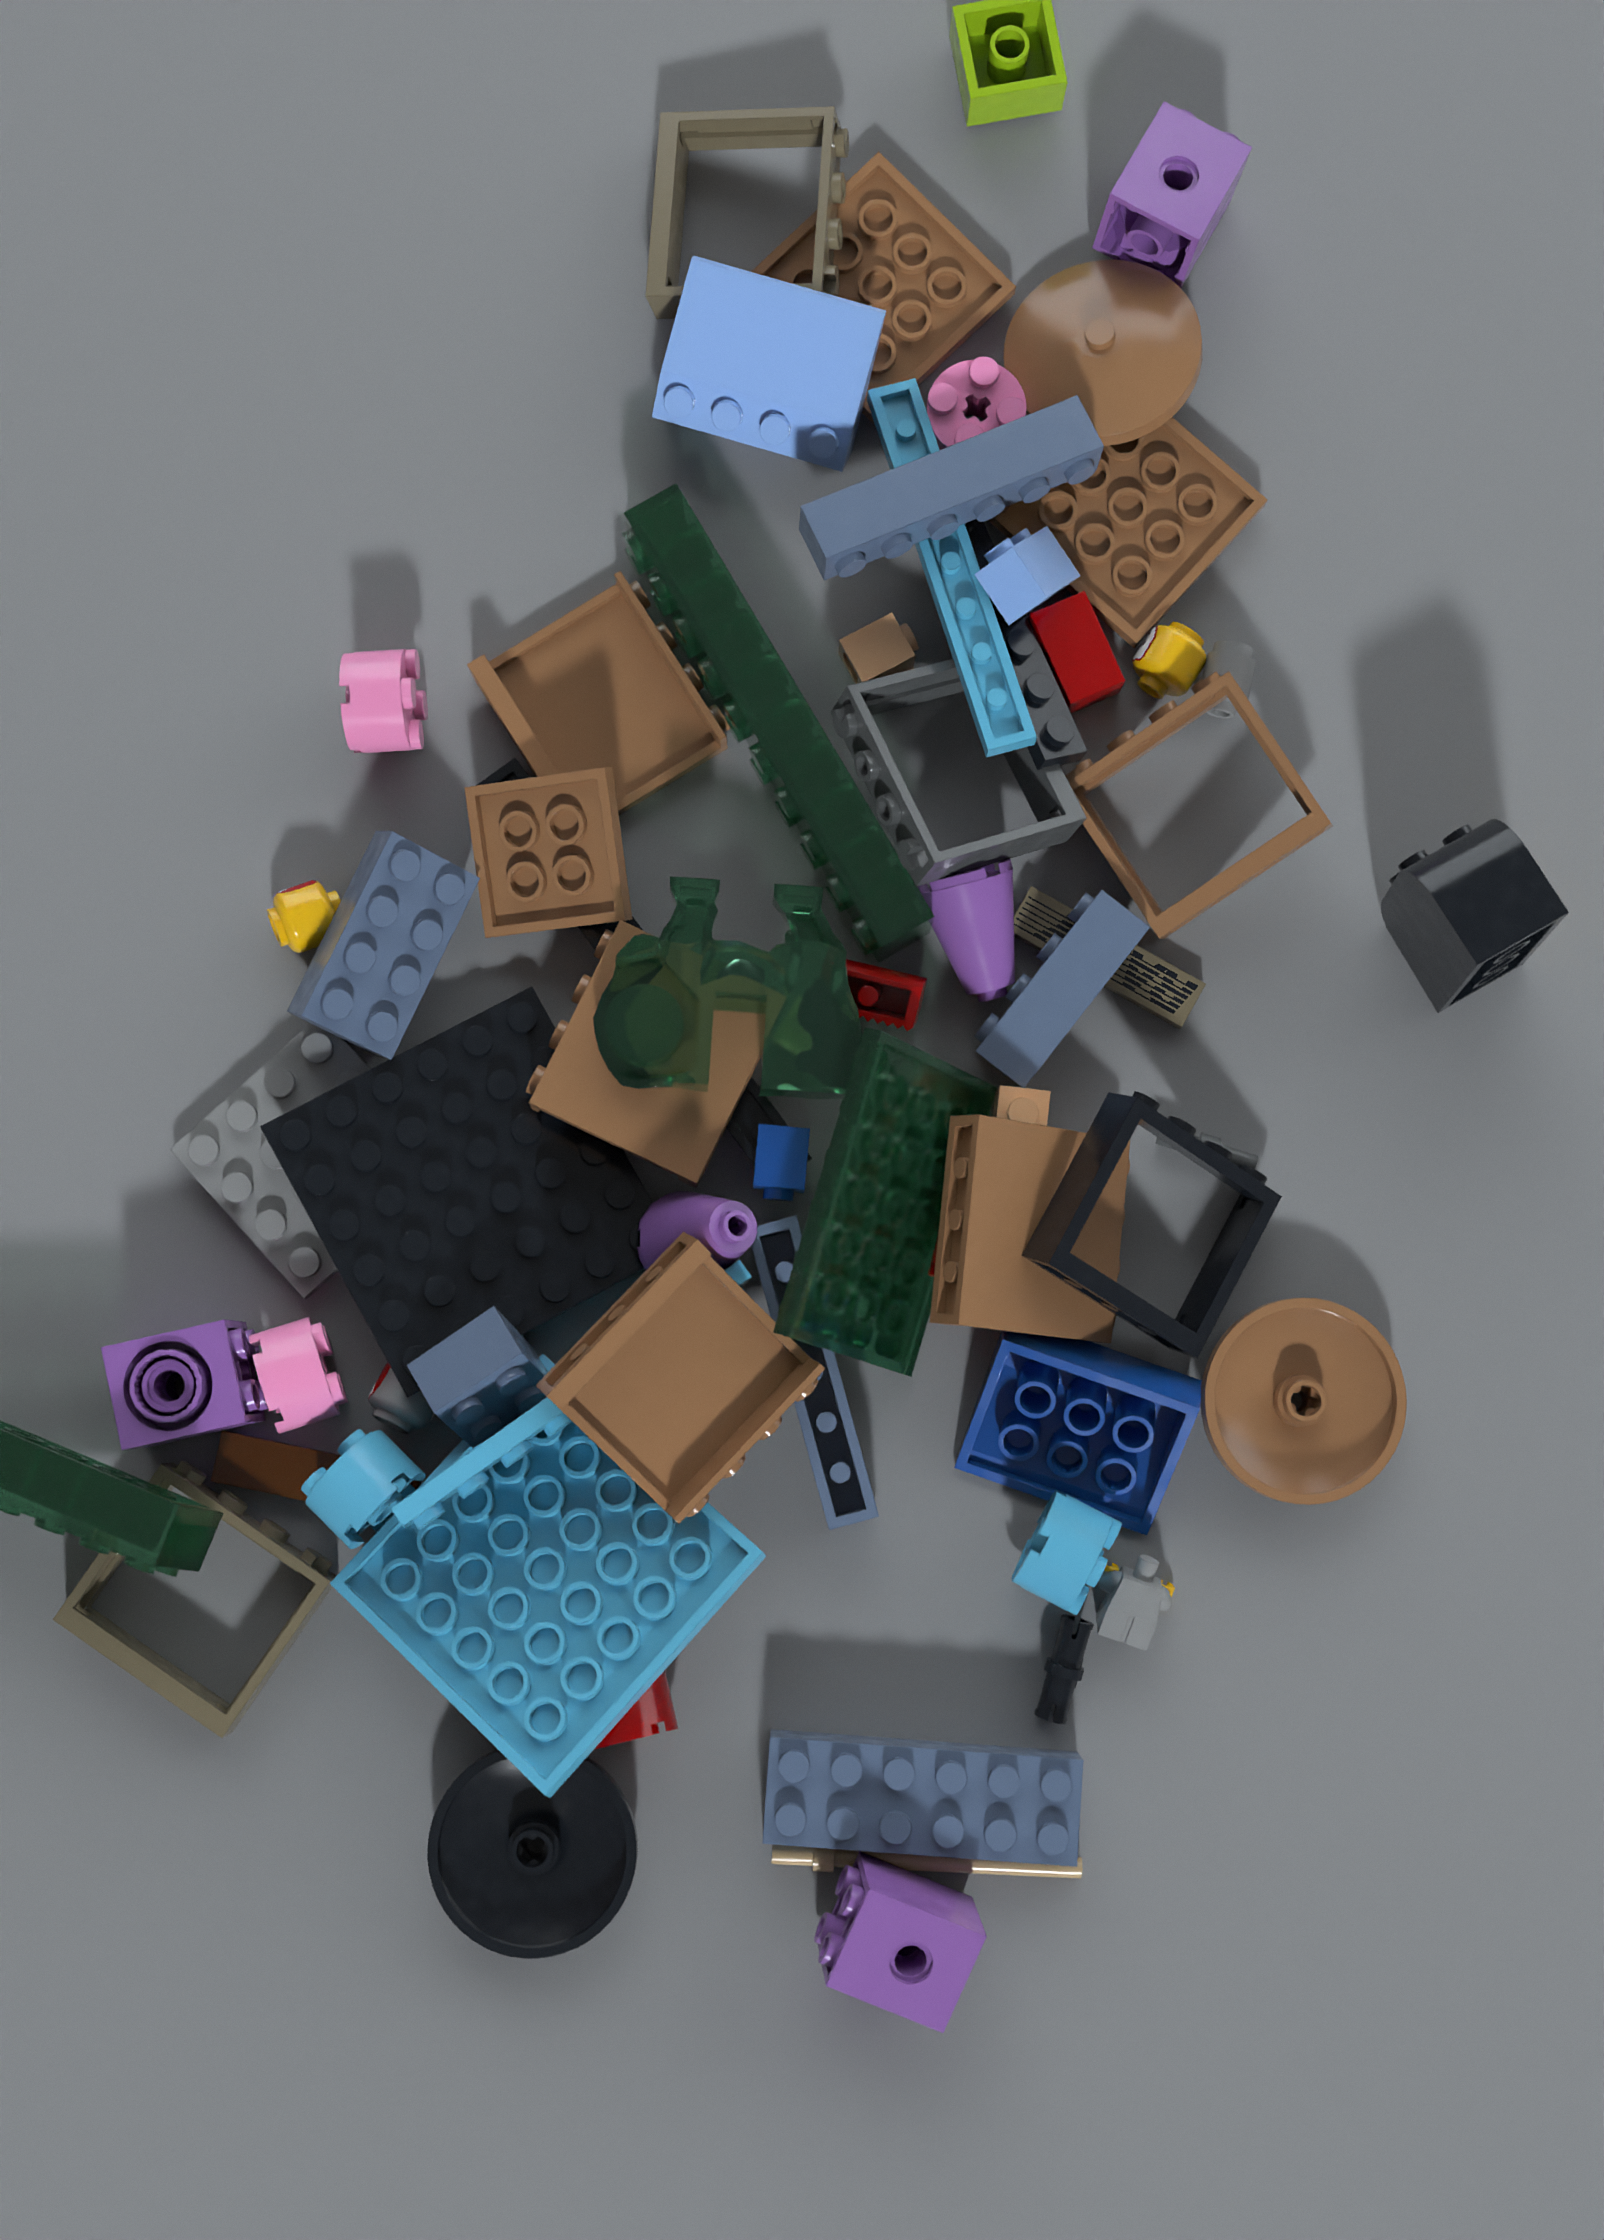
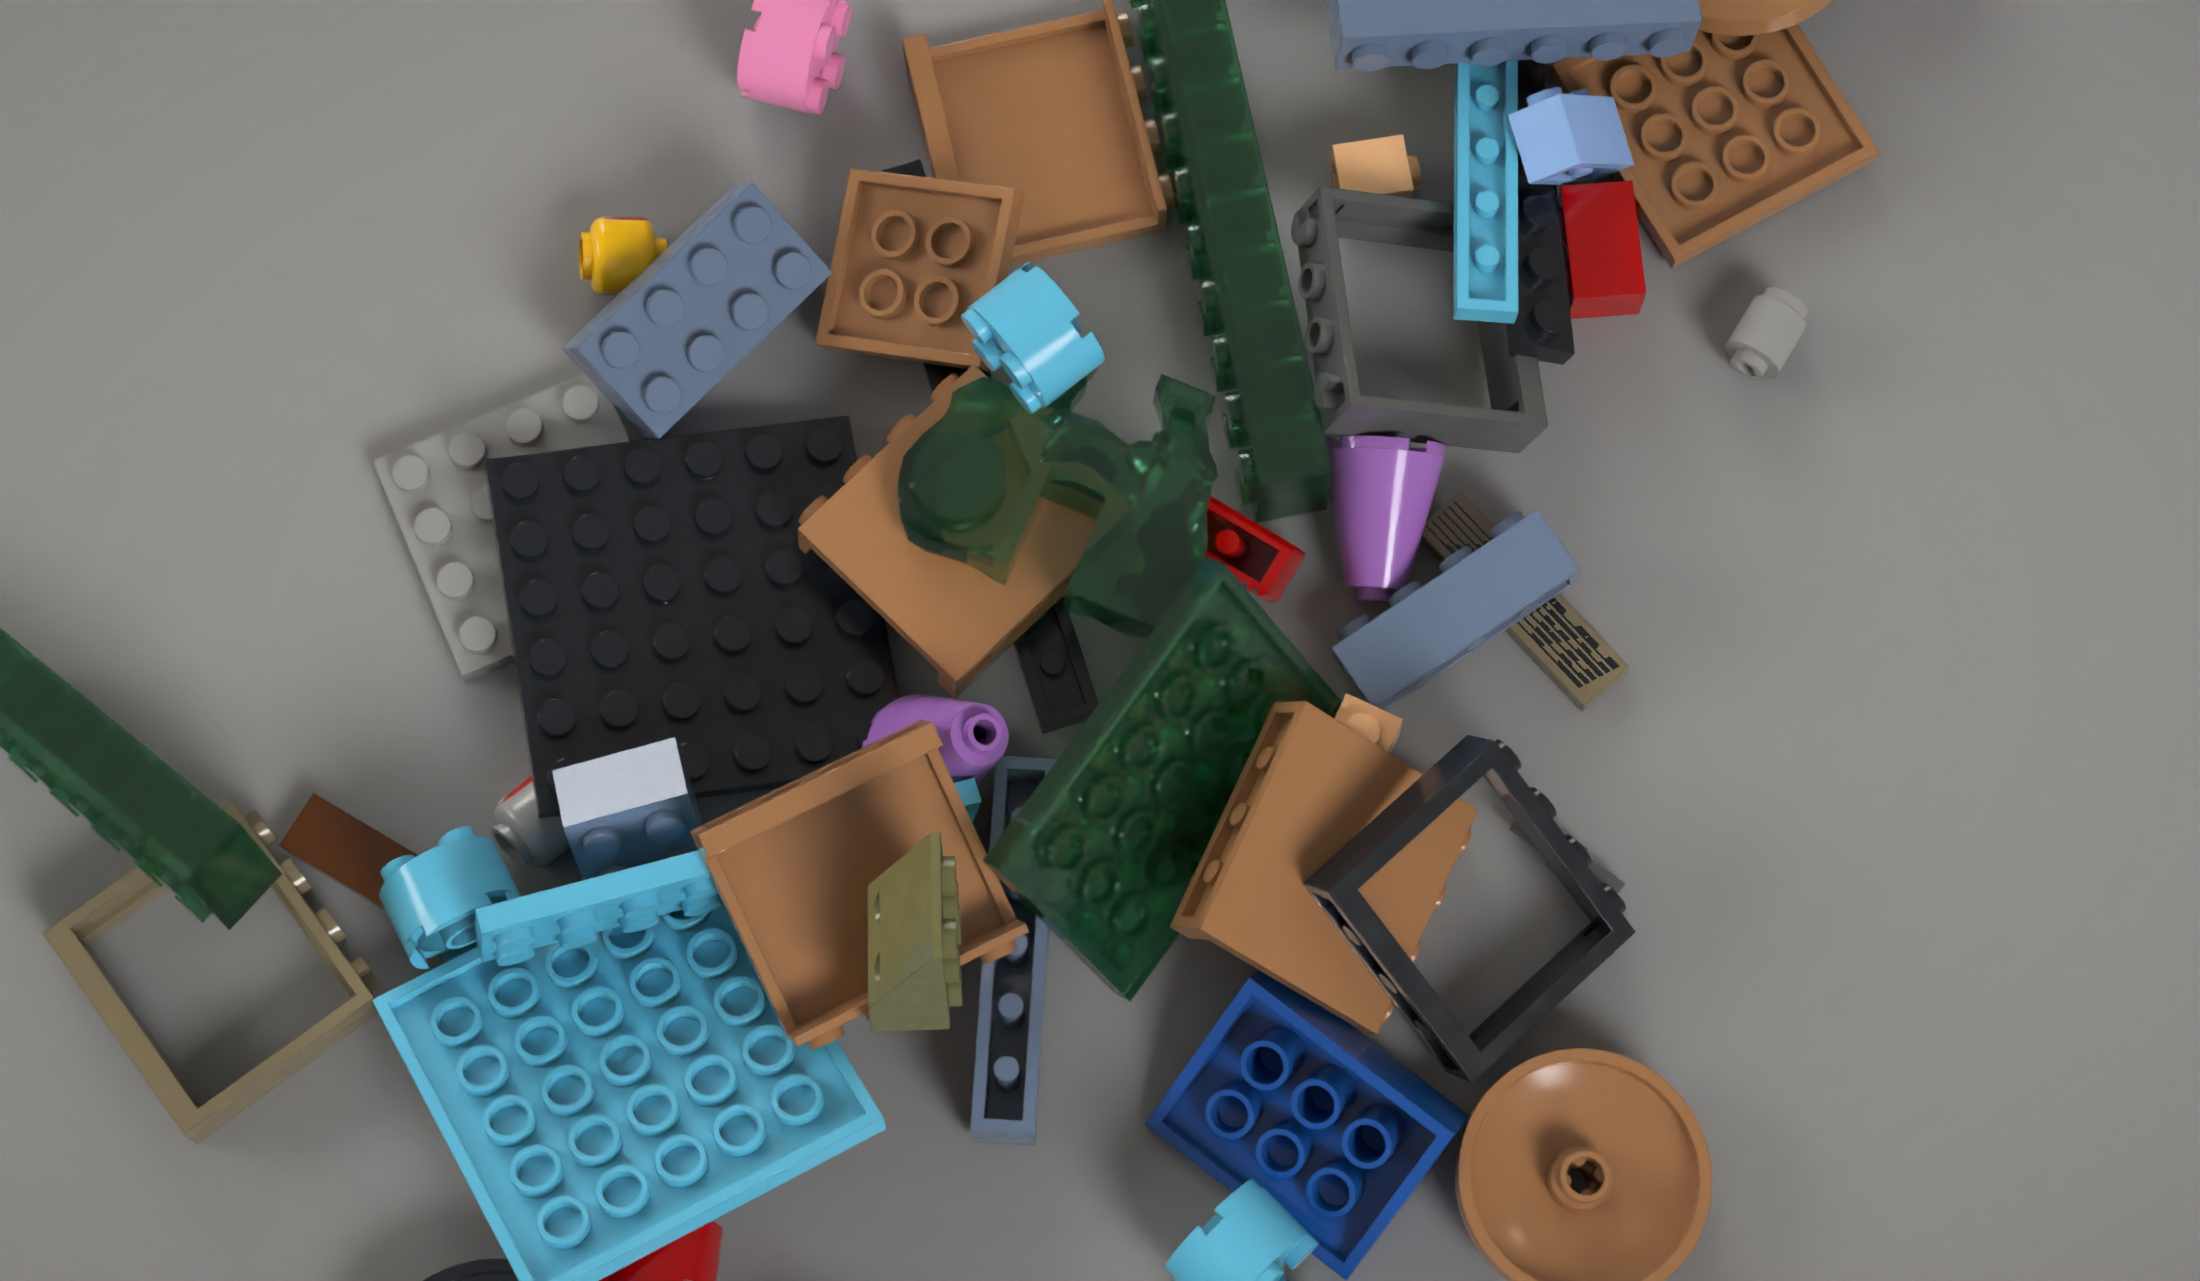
camera: 20 degrees right, 10 degrees down
(217, 1376) = (330, 729): medium lavender brick -> none
(296, 1373) = (421, 752): bright pink brick -> none
(668, 894) = (1033, 335): none -> medium azure brick
(745, 1432) = (915, 941): none -> olive slope
(781, 1161) = (1062, 694): blue brick -> none
(1130, 747) = (1629, 370): medium nougat window -> none
(1169, 660) = (1707, 292): yellow head -> none
(1469, 911) = (1958, 674): black brick -> none

